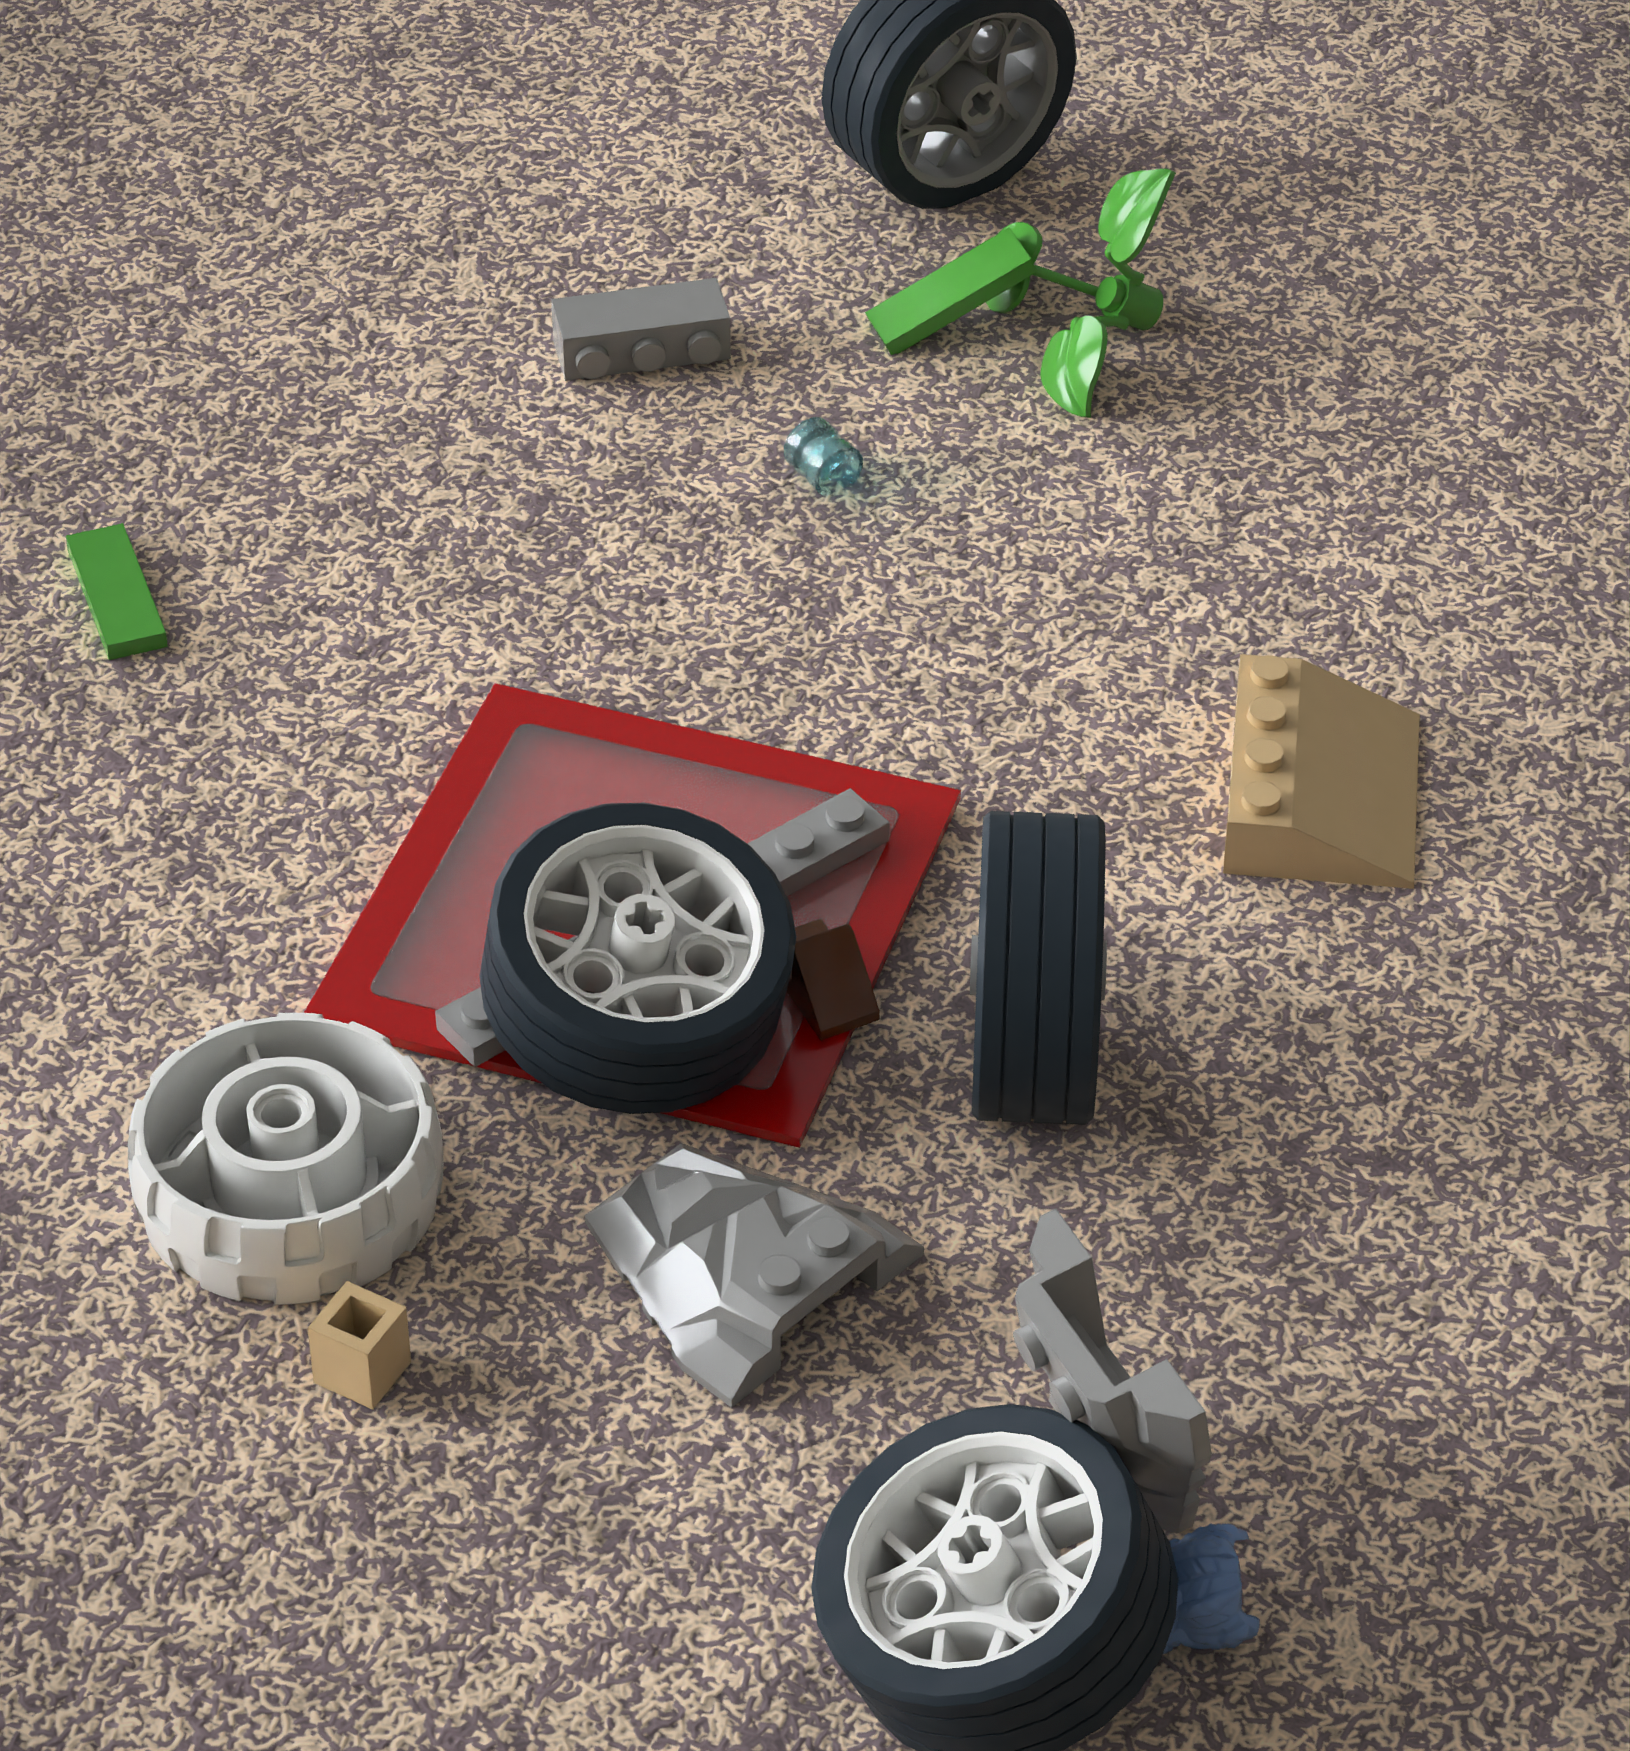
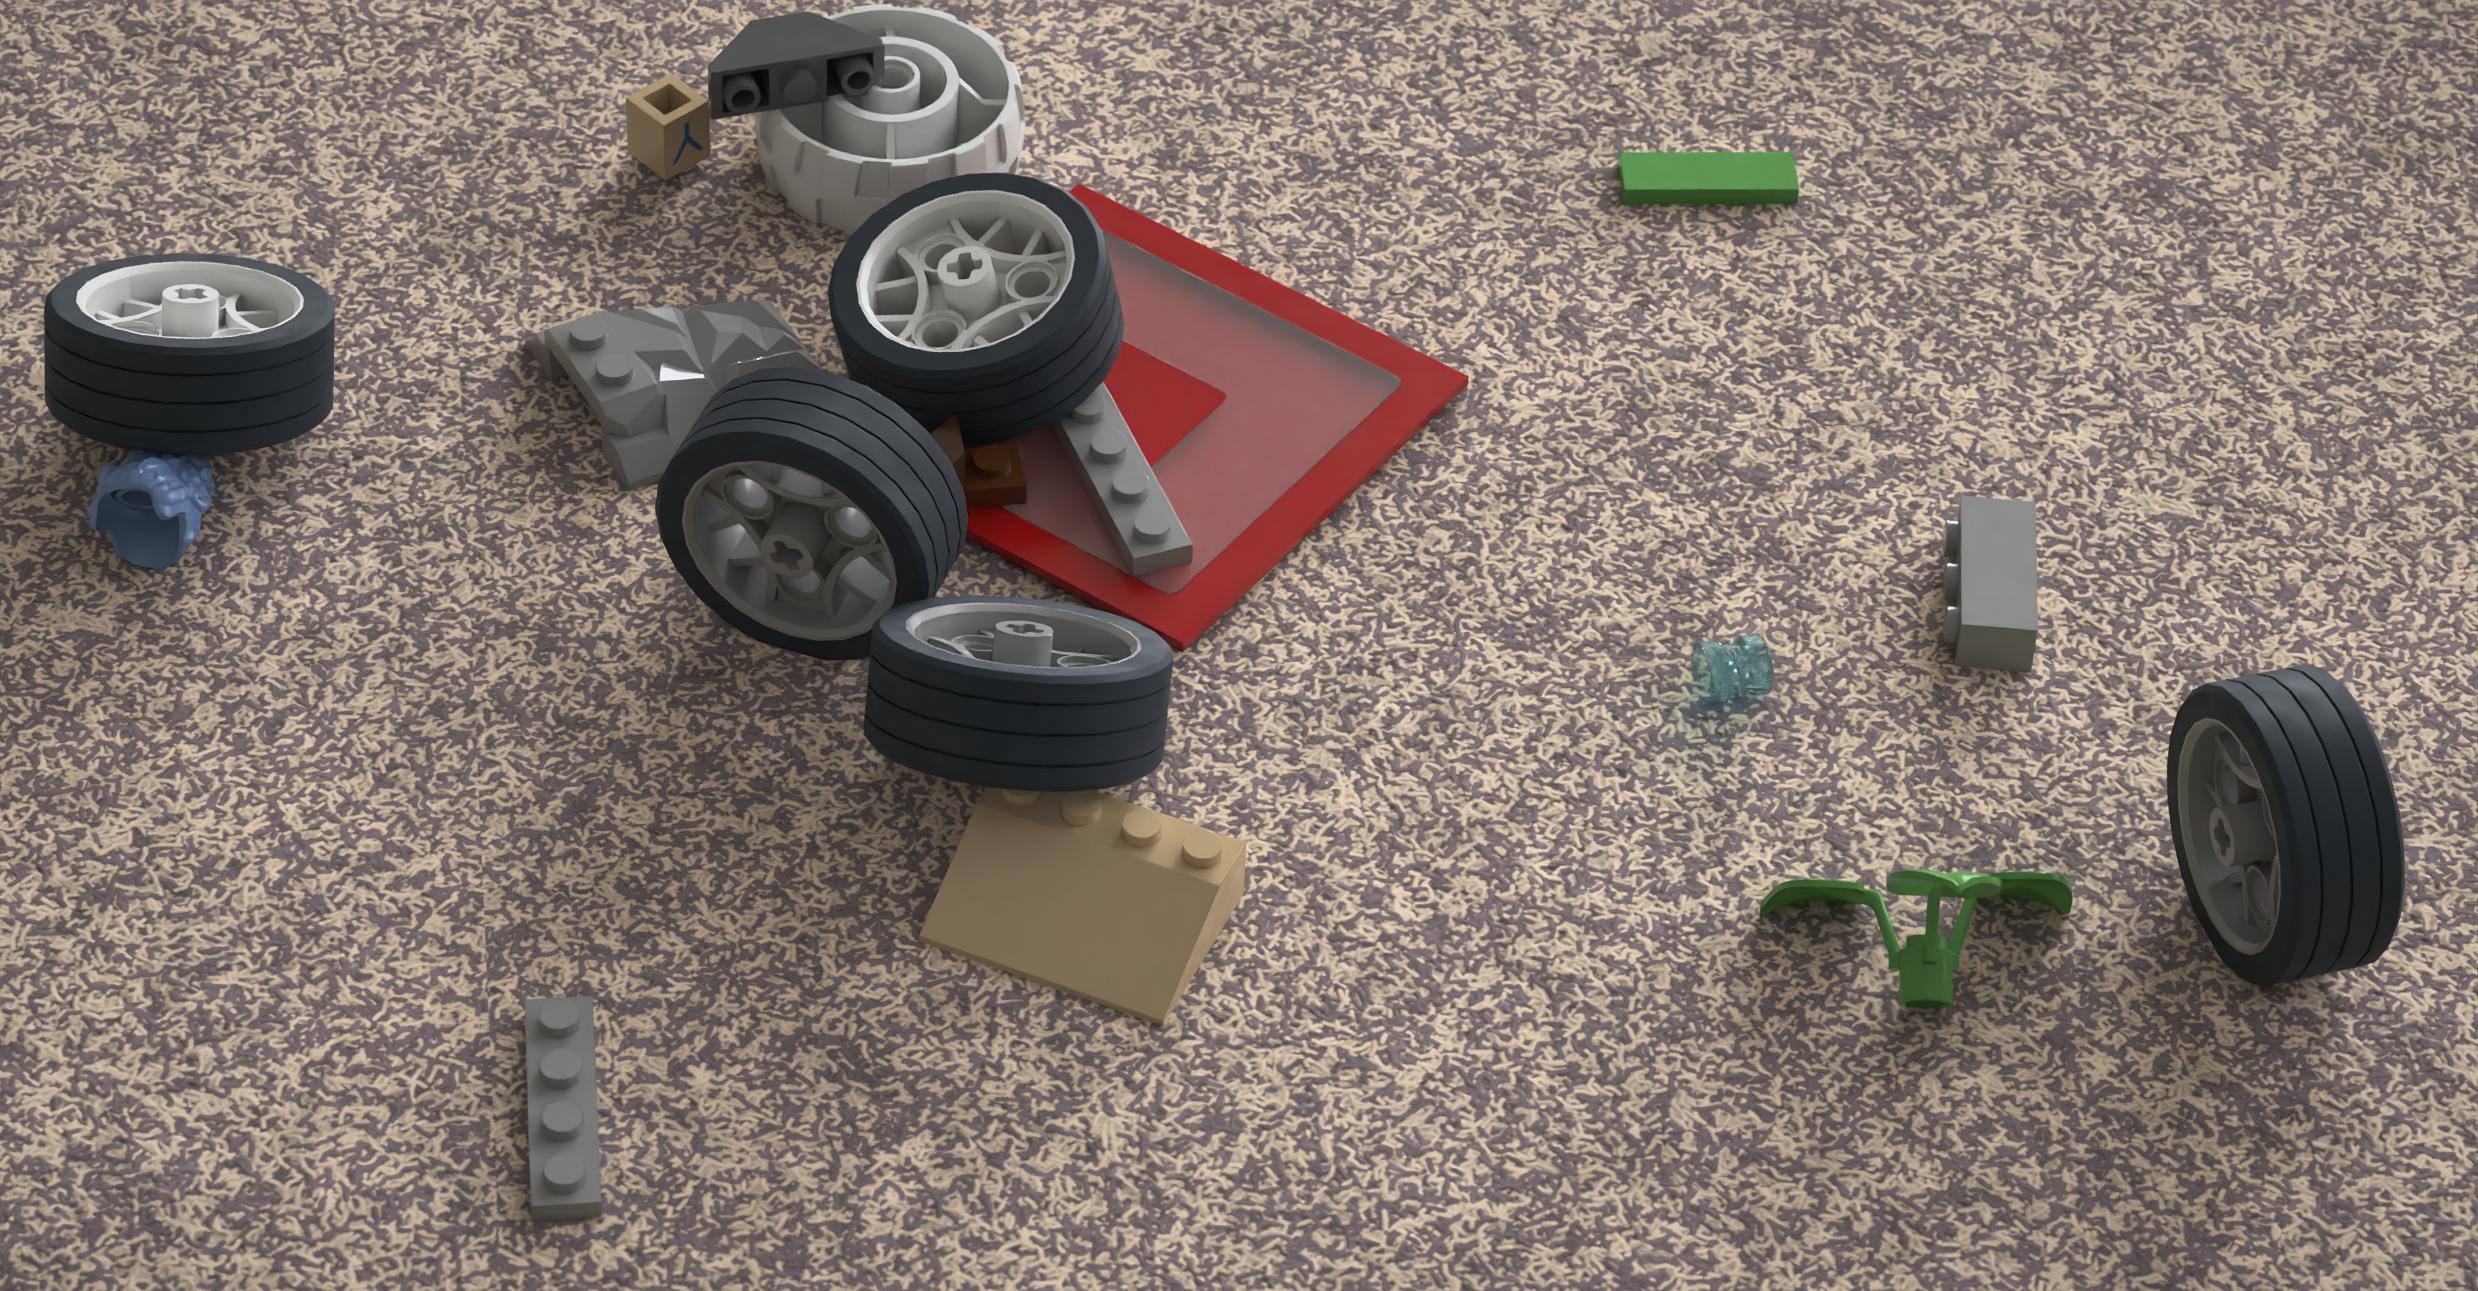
camera: 105 degrees right, 0 degrees up
(325, 1178) = (792, 64): none -> dark grey slope
(951, 291) = (1975, 822): bright green tile -> none
(1145, 1417) = (302, 425): light grey wedge -> none
(1201, 788) = (1018, 693): none -> black wheel

